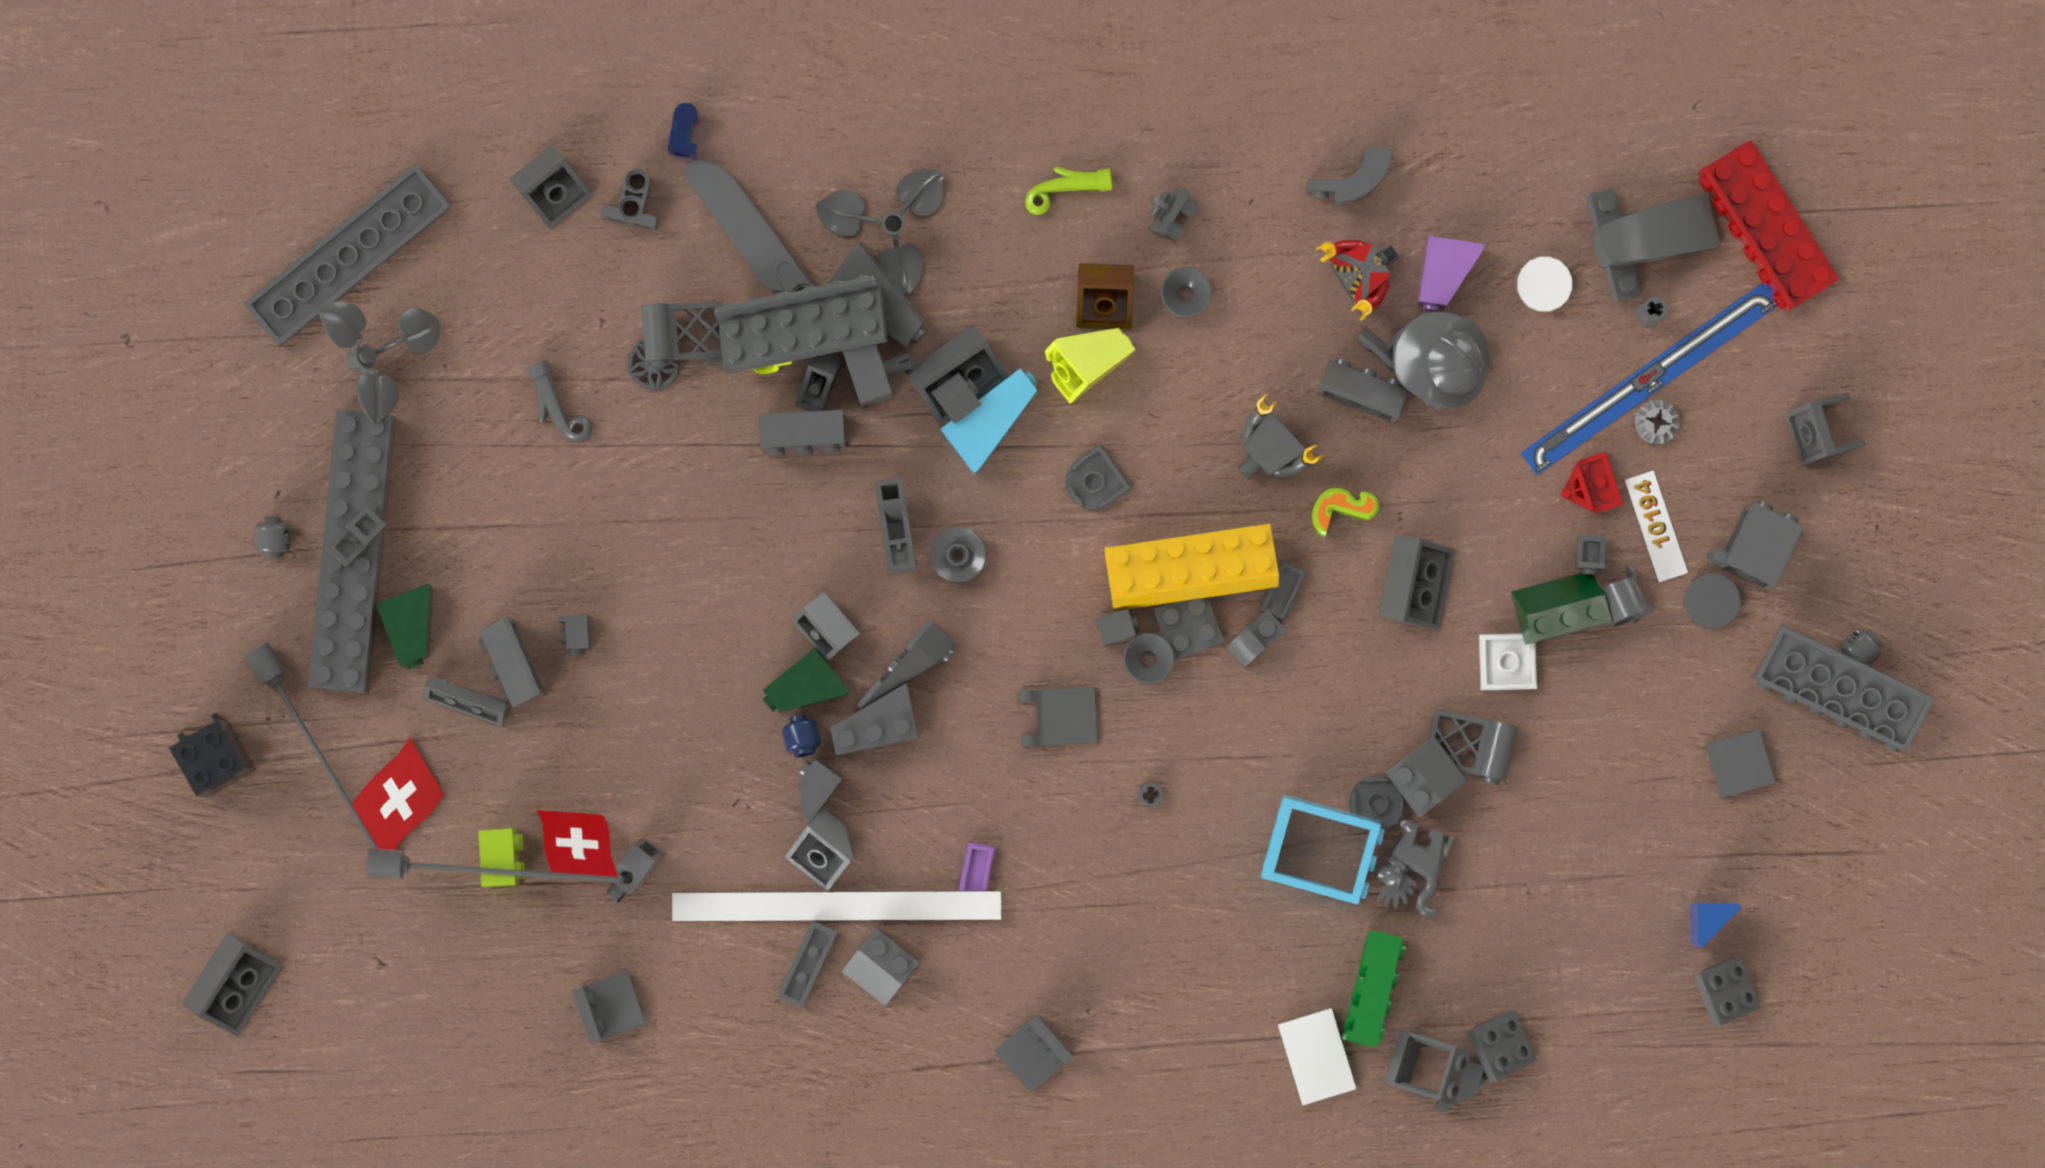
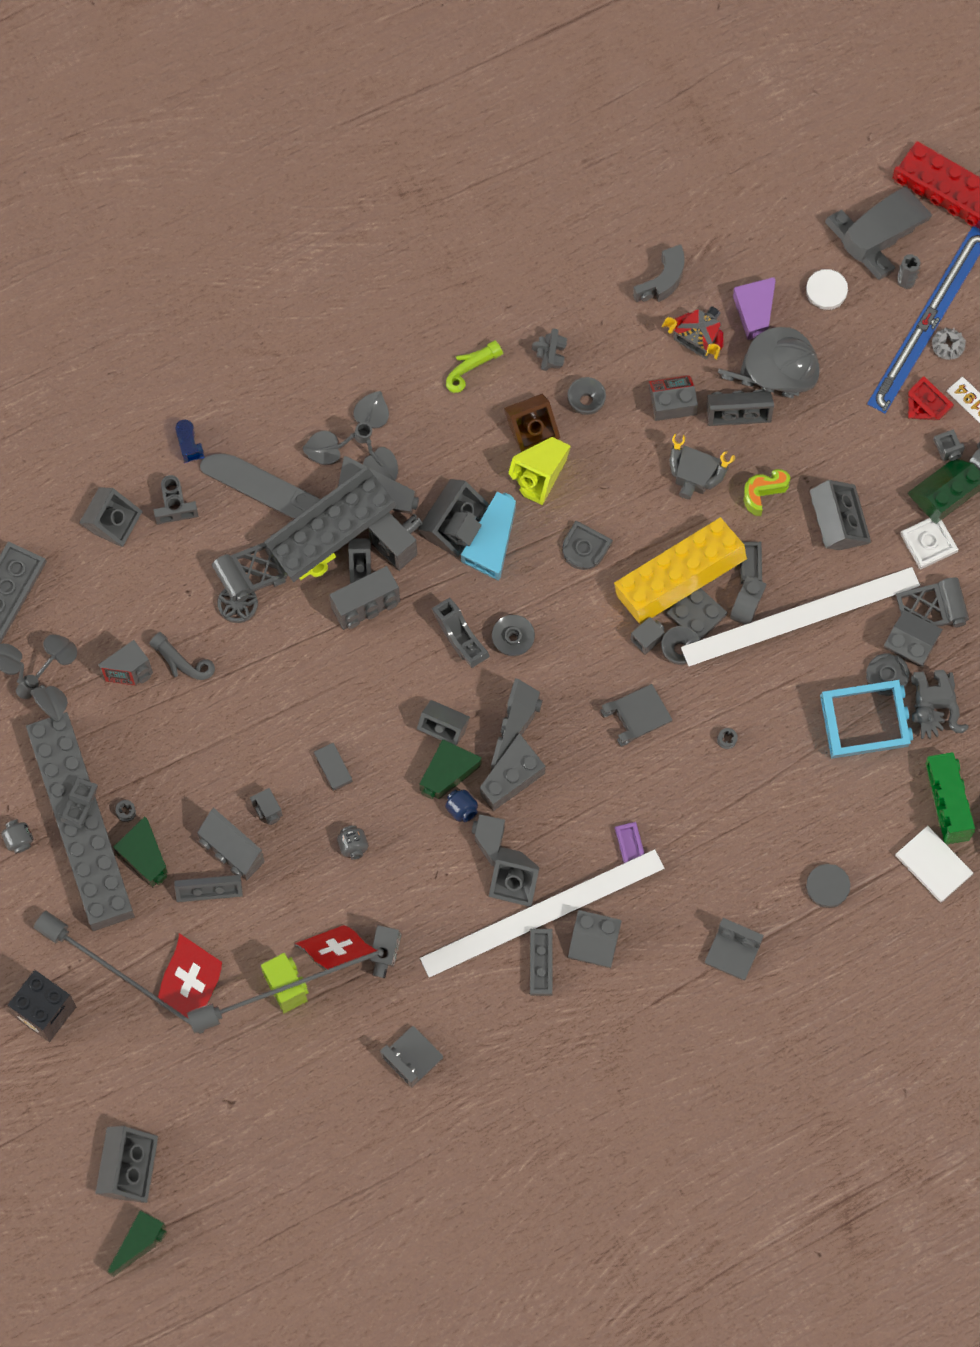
camera: 25 degrees left, 15 degrees down
(213, 1075) = (140, 1239): none -> dark green slope
(405, 567) = (122, 816): none -> dark grey bush
(489, 387) = (127, 666): none -> dark grey slope
(655, 722) = (352, 842): none -> dark grey head
(675, 618) = (333, 766): none -> dark grey tile
(1181, 1025) = (828, 885): none -> dark grey tile
(1290, 338) = (673, 398): none -> dark grey slope
(1308, 686) = (800, 616): none -> white sticker

